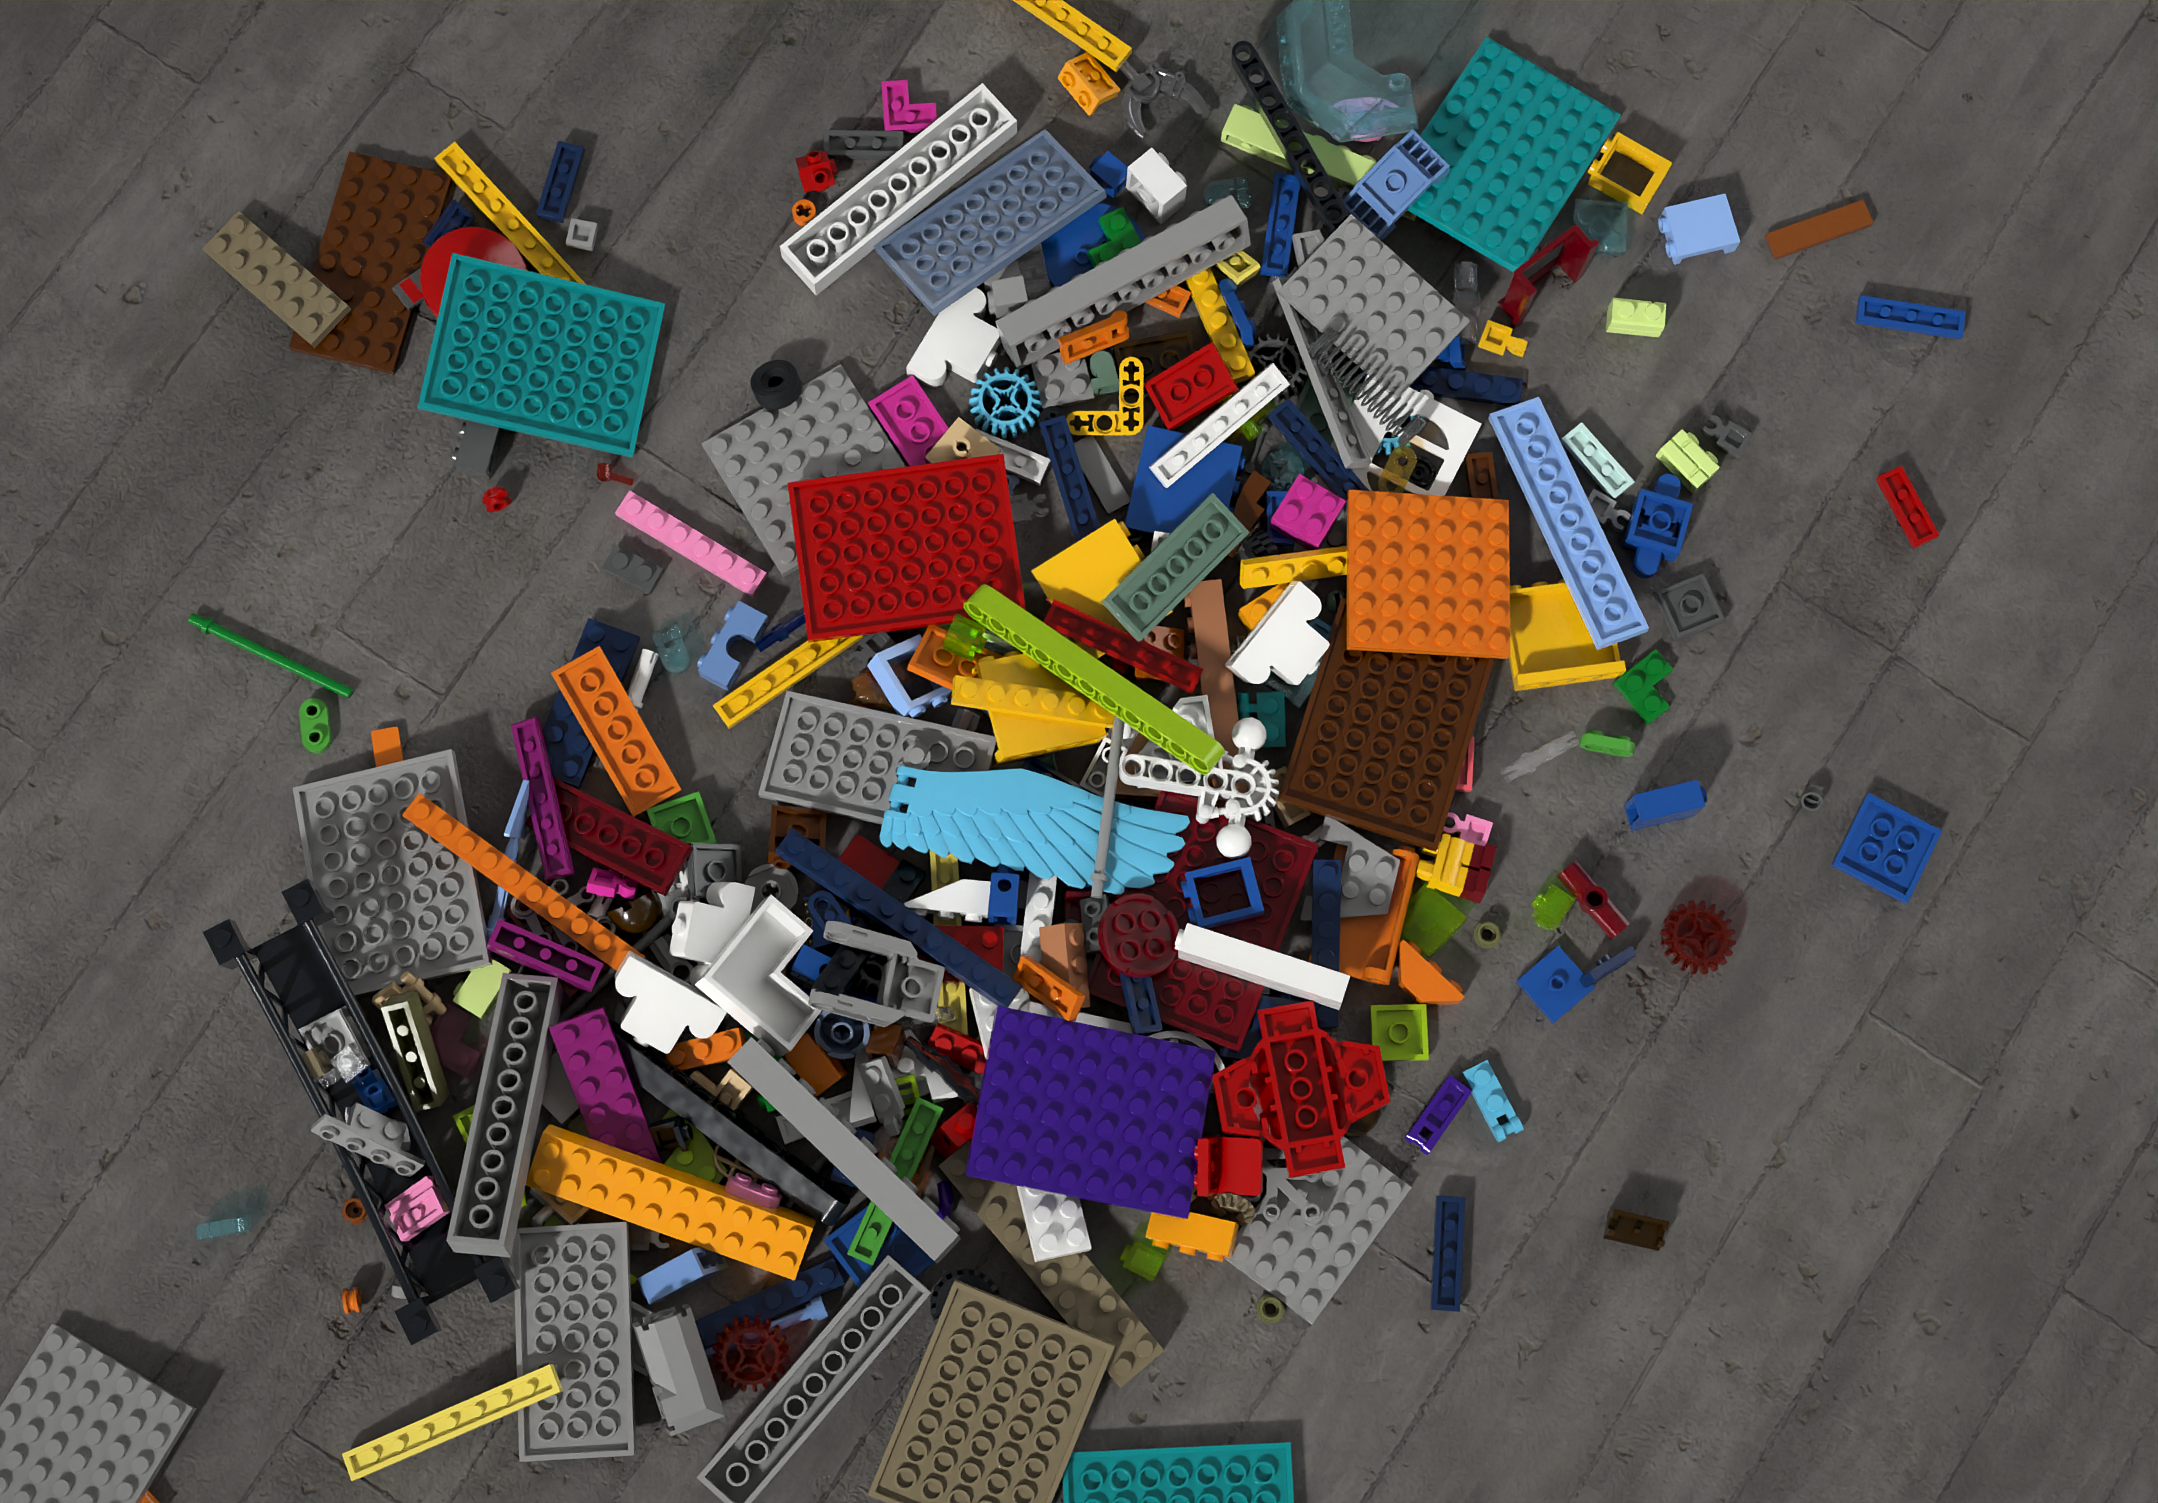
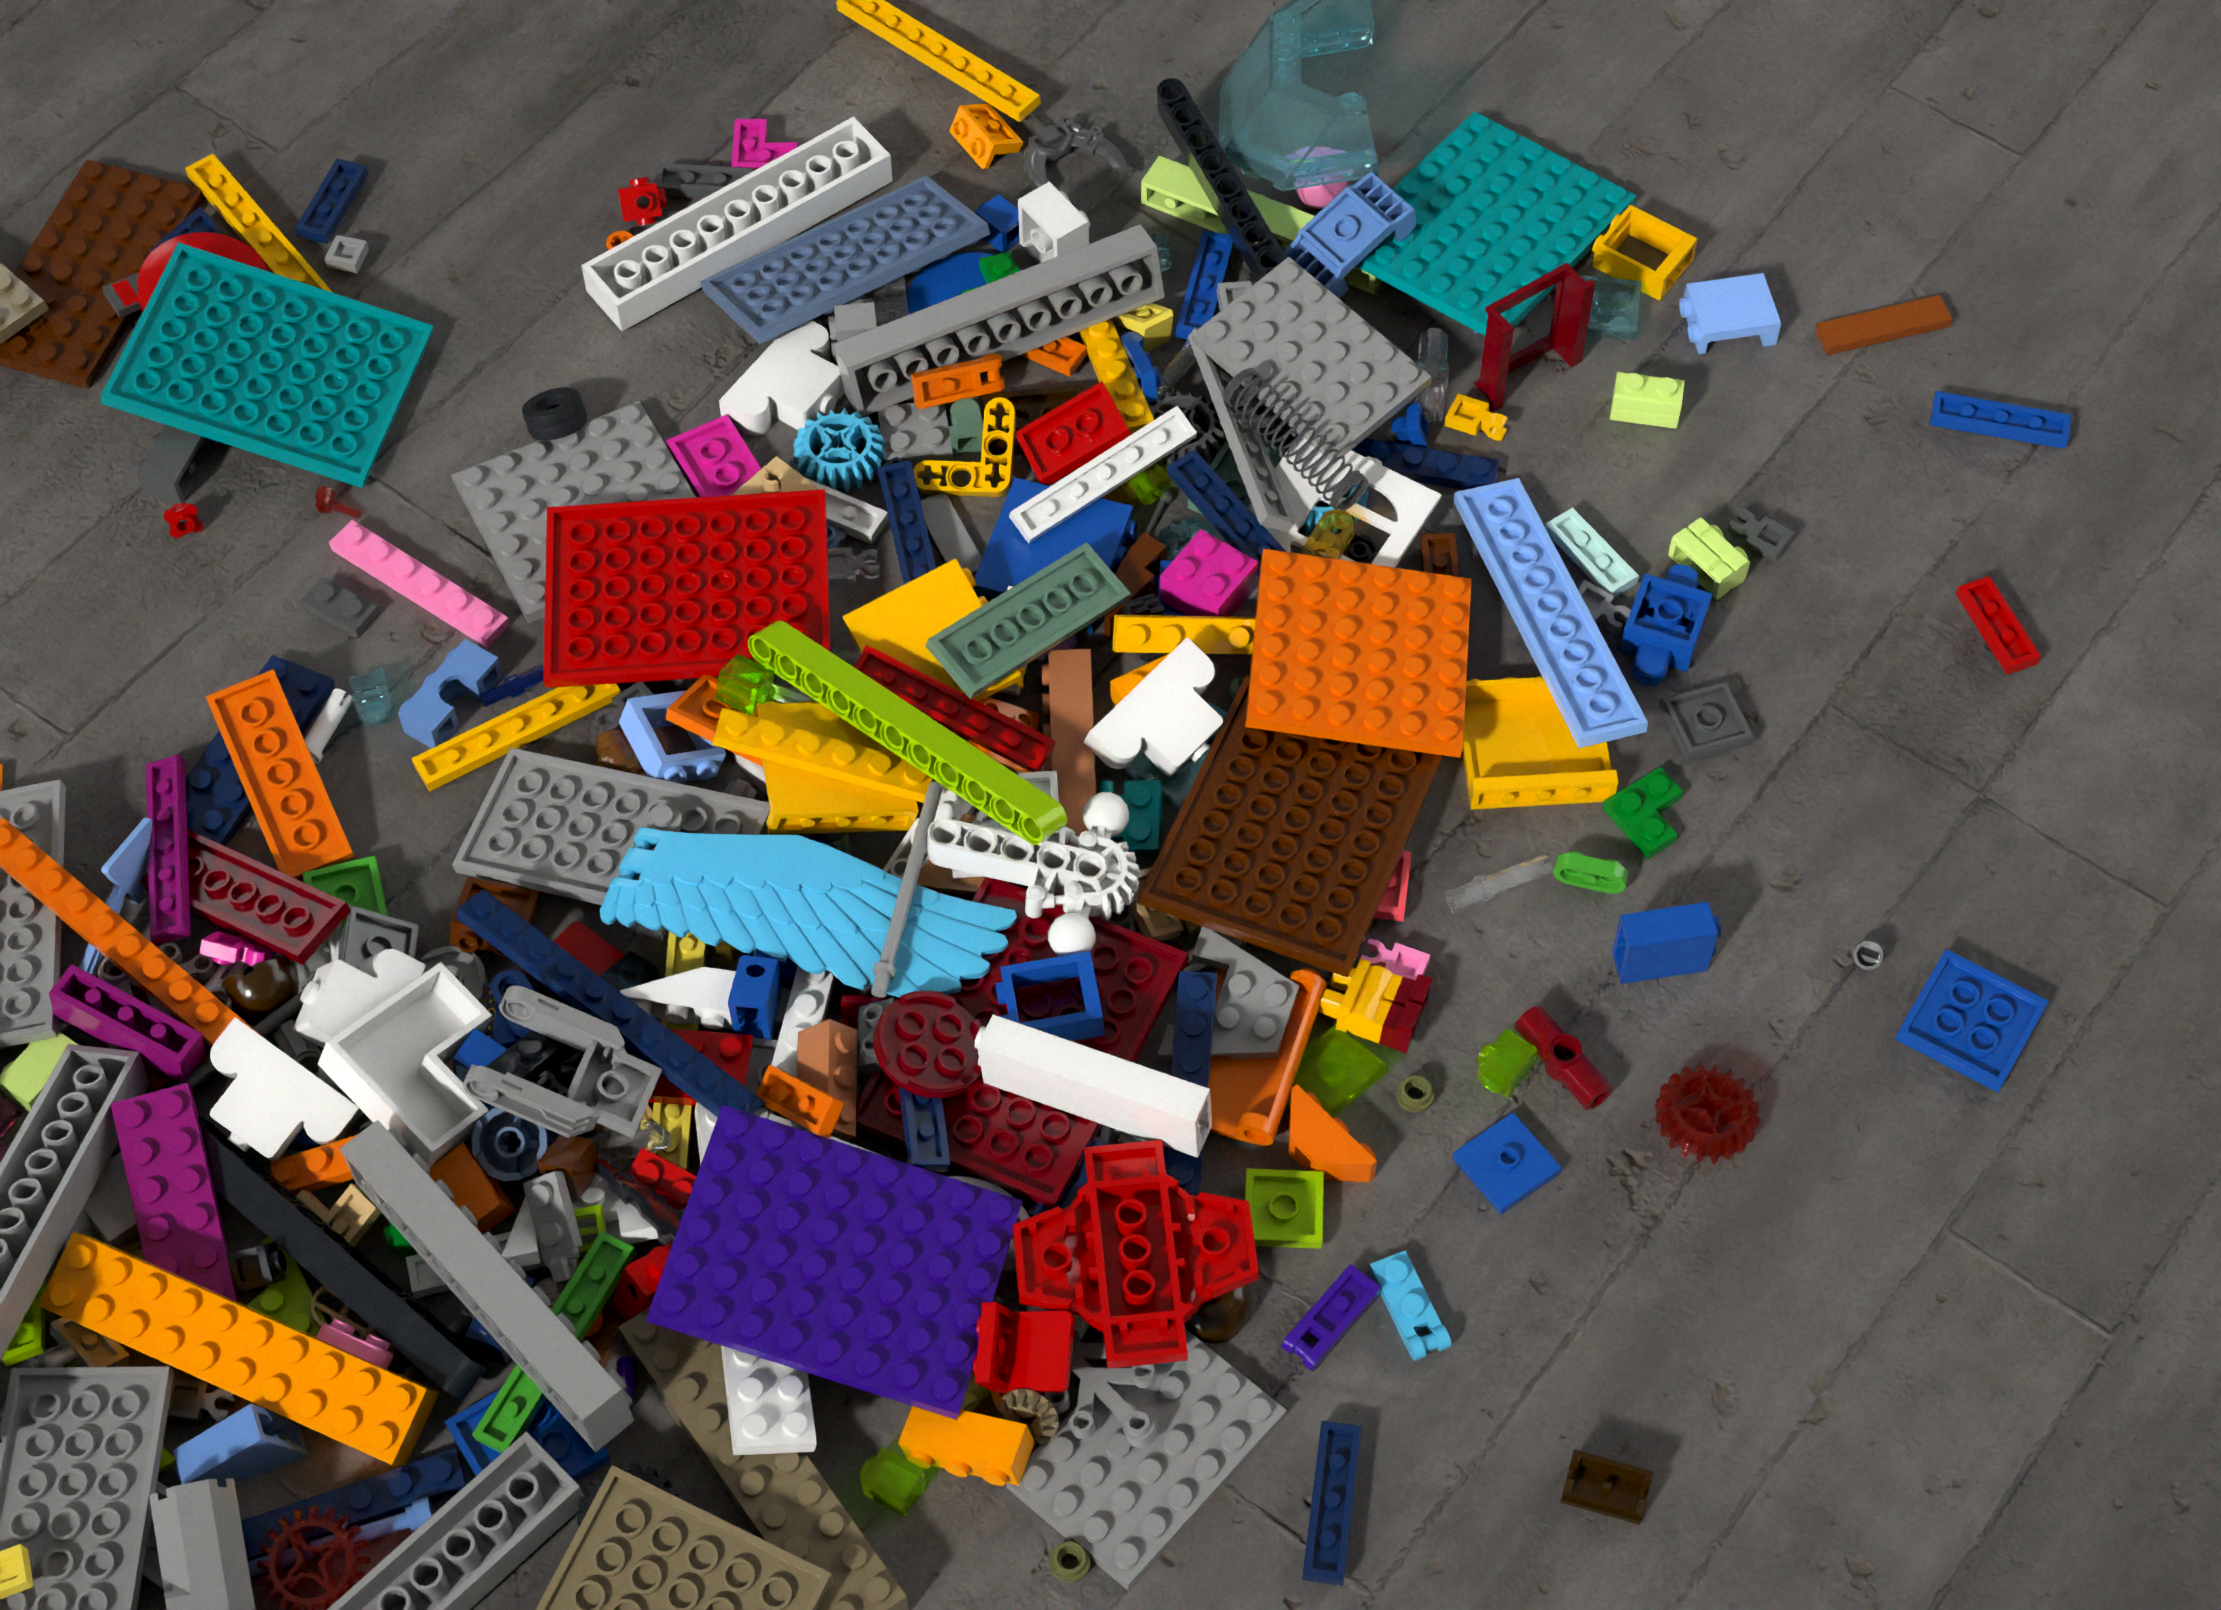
camera: 10 degrees right, 20 degrees down
(1607, 965) = (1579, 1138): dark blue plate -> none

